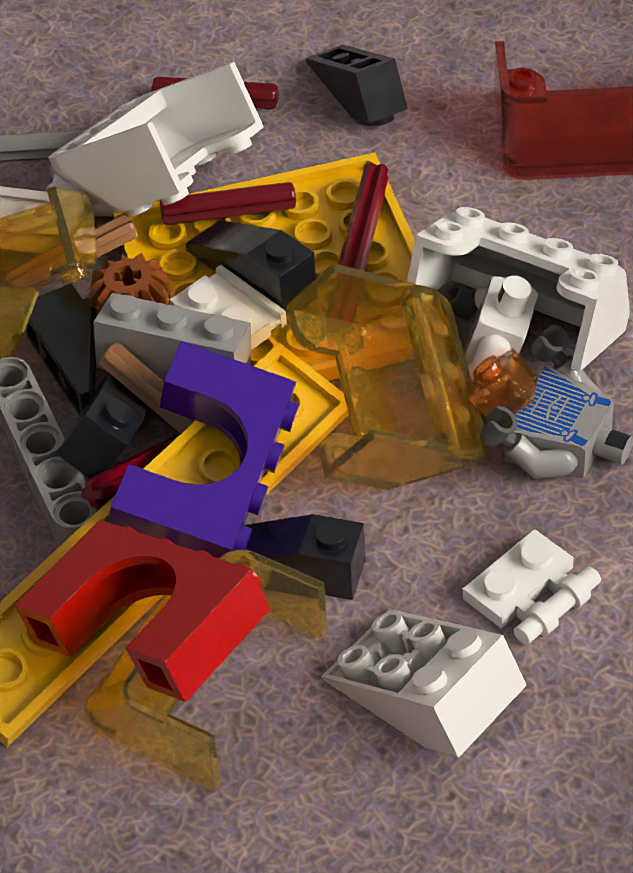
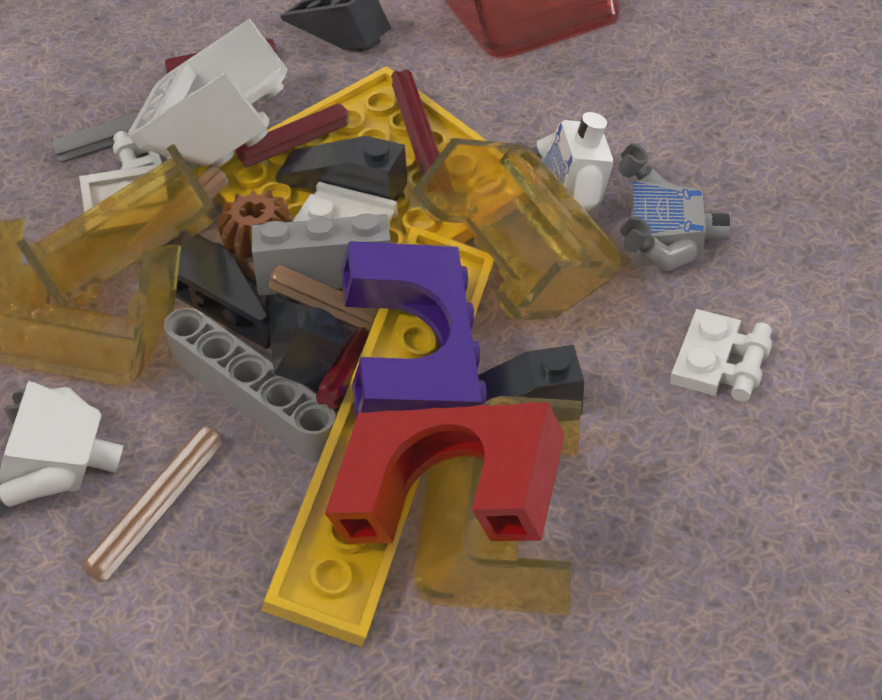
camera: 25 degrees left, 0 degrees up
(429, 678) = (692, 453): white slope -> none
(503, 382) = (611, 204): clear orange plate -> none
(569, 283) = (633, 112): white windscreen -> none

